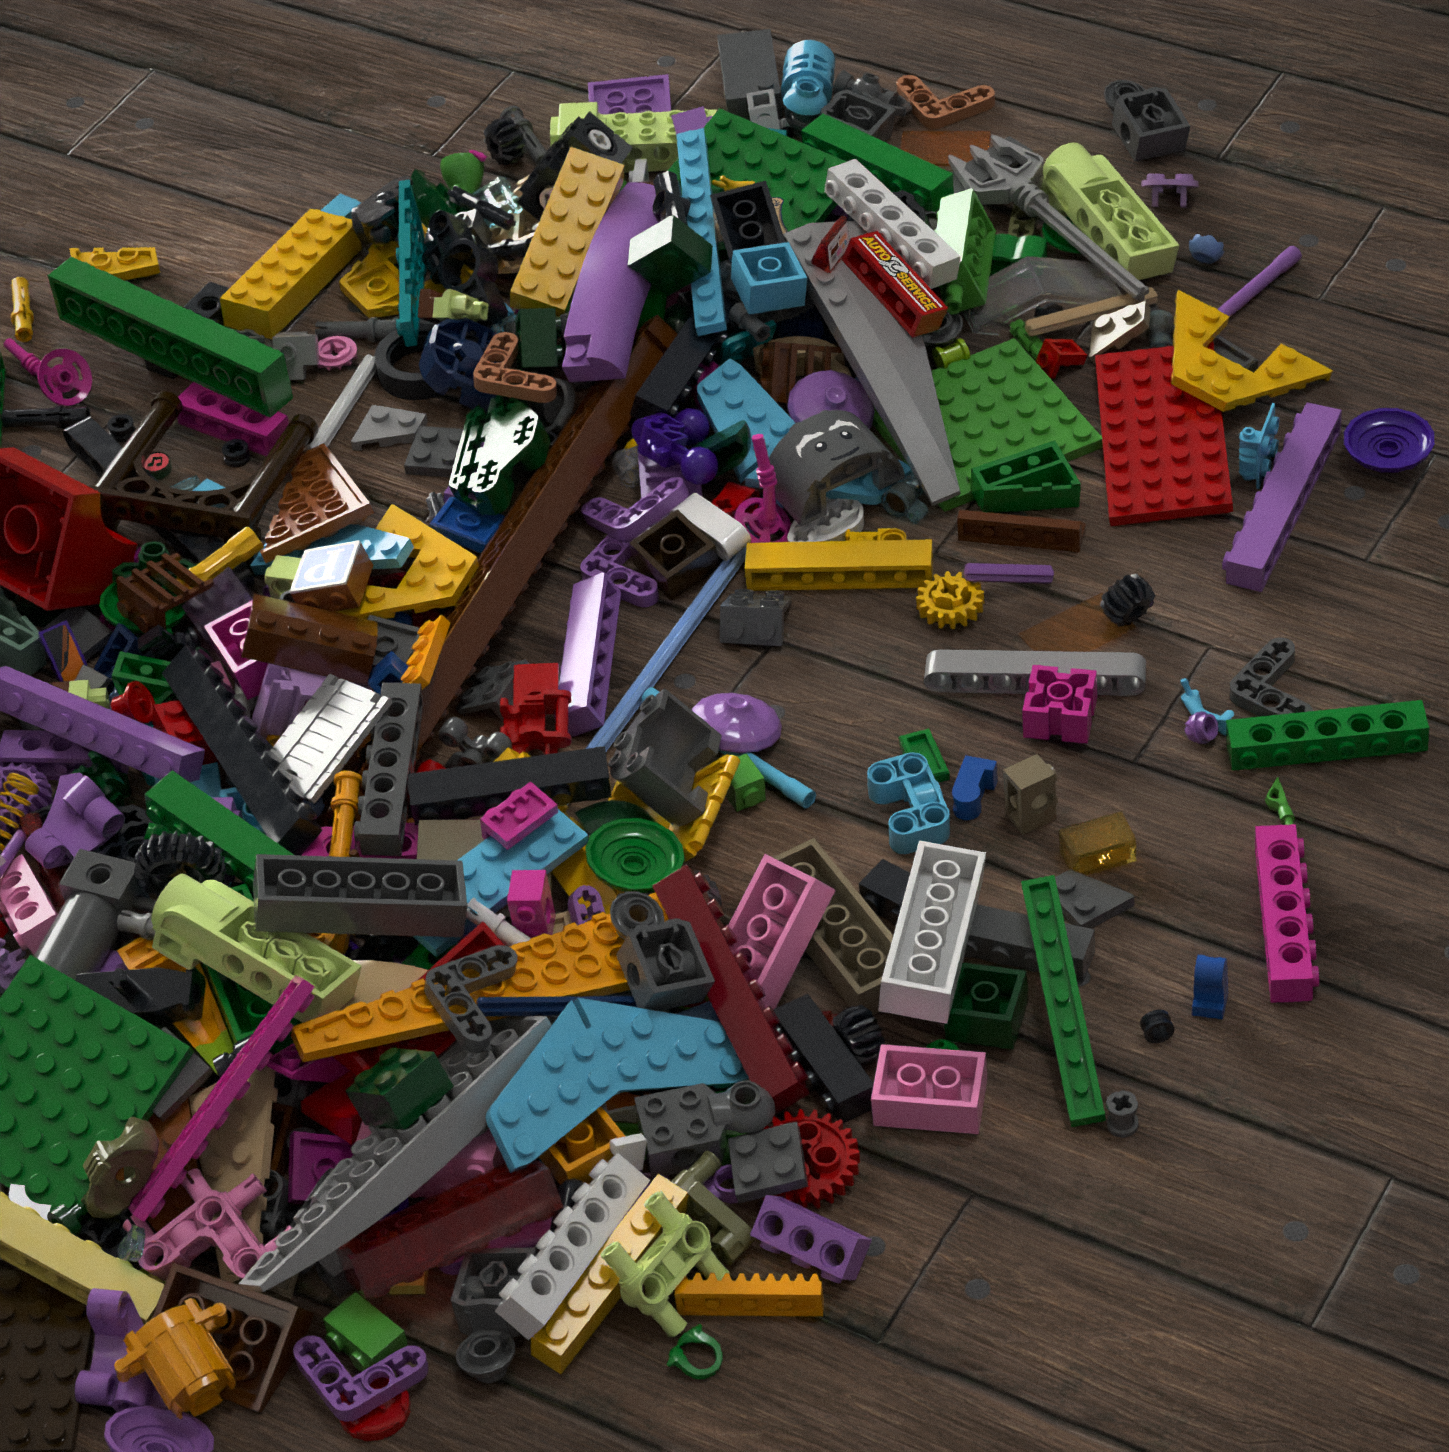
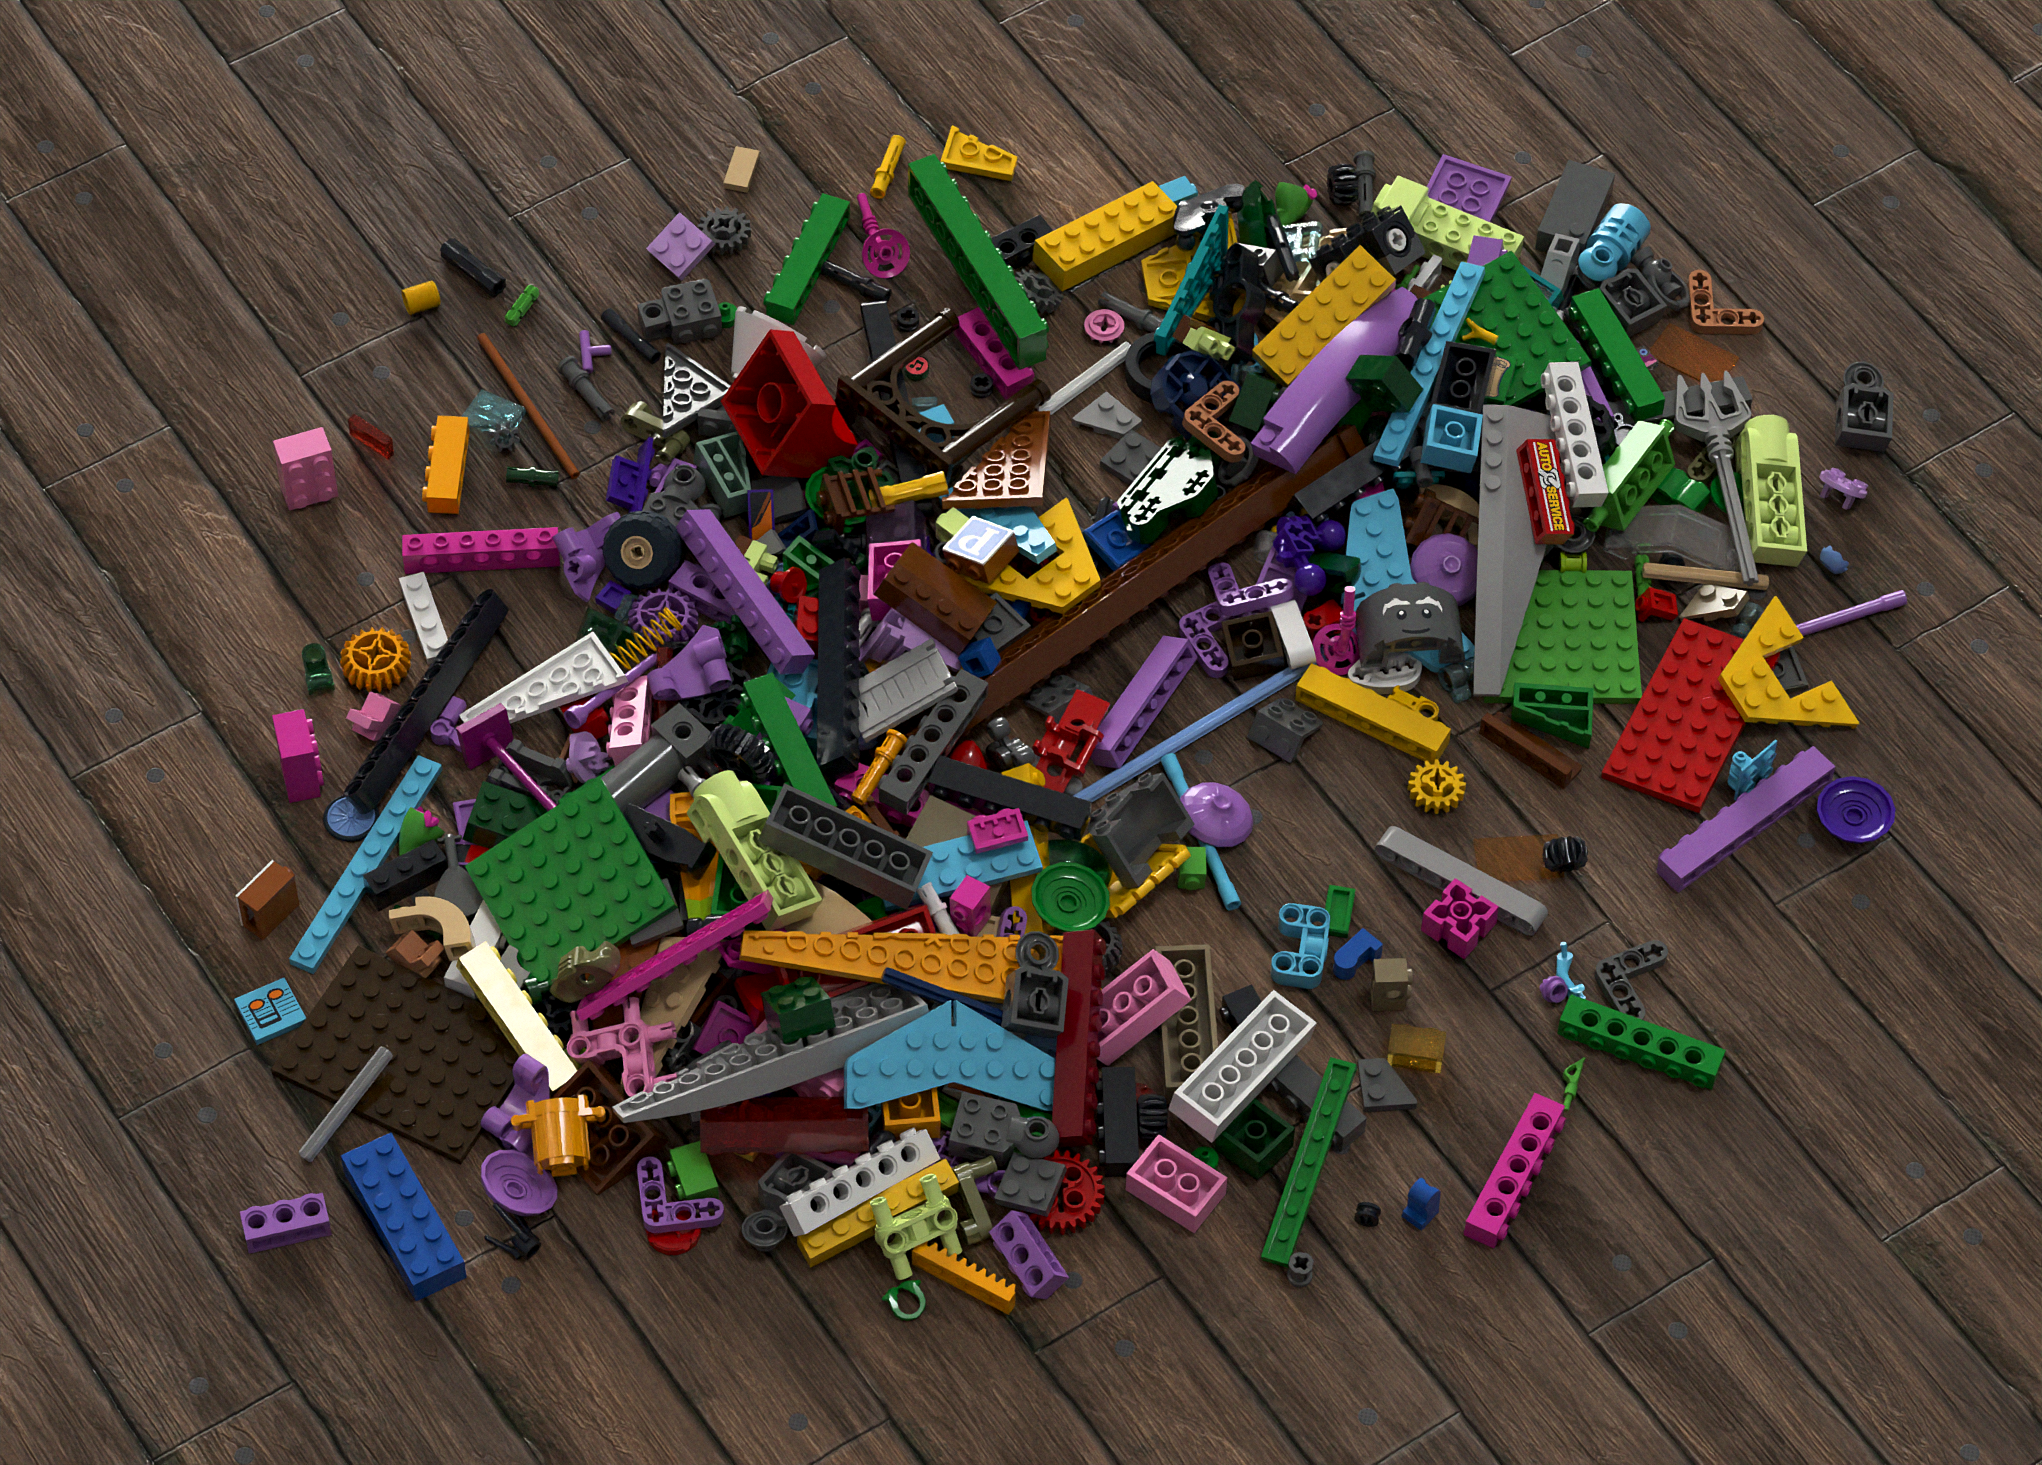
camera: 20 degrees right, 10 degrees up
(132, 1245) = (567, 1032): clear light blue tile -> none
(299, 351) = (1070, 314): light grey brick -> none
(426, 652) = (1012, 653): light orange plate -> none
(460, 986) = (878, 951): dark grey beam -> none
(630, 1148) = (938, 1129): white tile -> none
(832, 246) = (1511, 438): slope -> none
(1008, 573) = (1492, 785): medium lavender axle -> none

